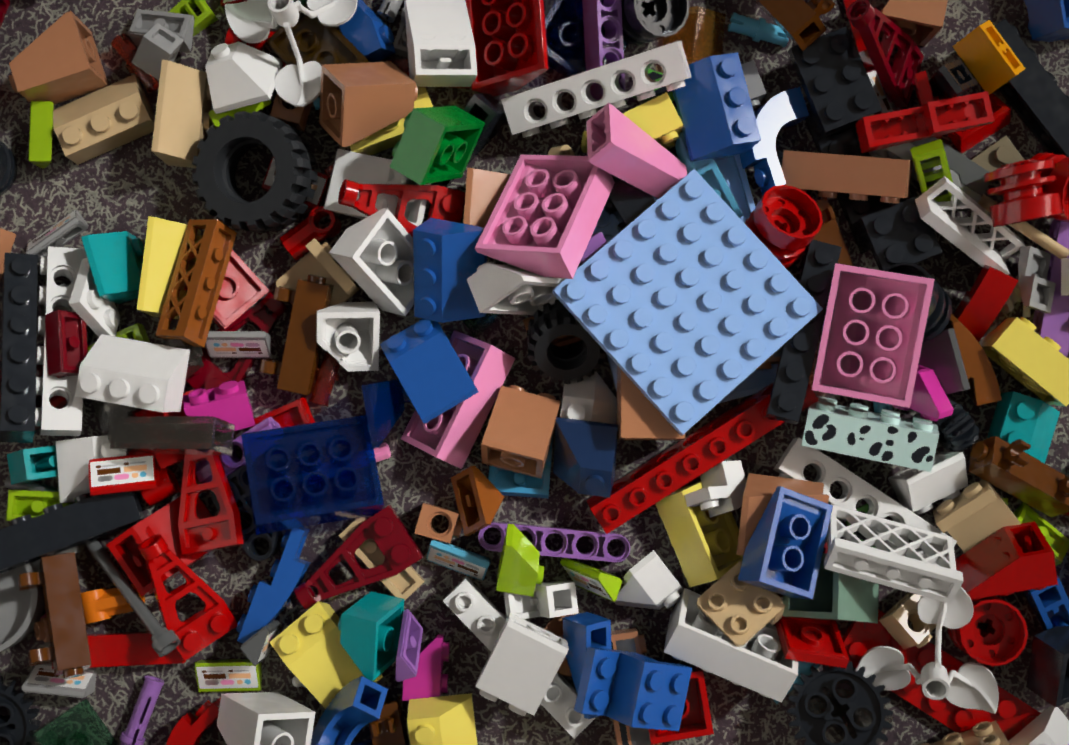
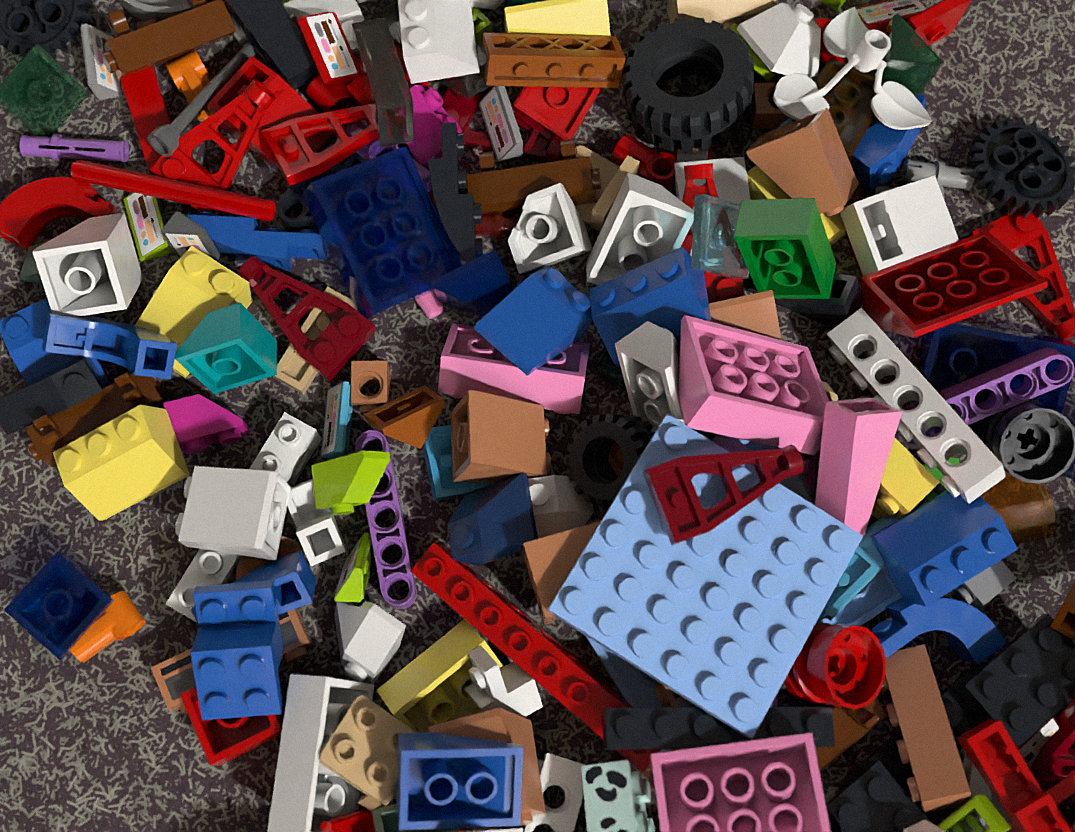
camera: 75 degrees right, 10 degrees down
(211, 646) = (173, 190): none -> red axle
(312, 407) = (456, 210): none -> black slope
(408, 647) = (224, 389): medium lavender slope -> none
(410, 199) = (713, 238): none -> clear light blue plate
(627, 305) = (679, 503): none -> dark red plate
(757, 29) = (1053, 576): medium azure pin -> none

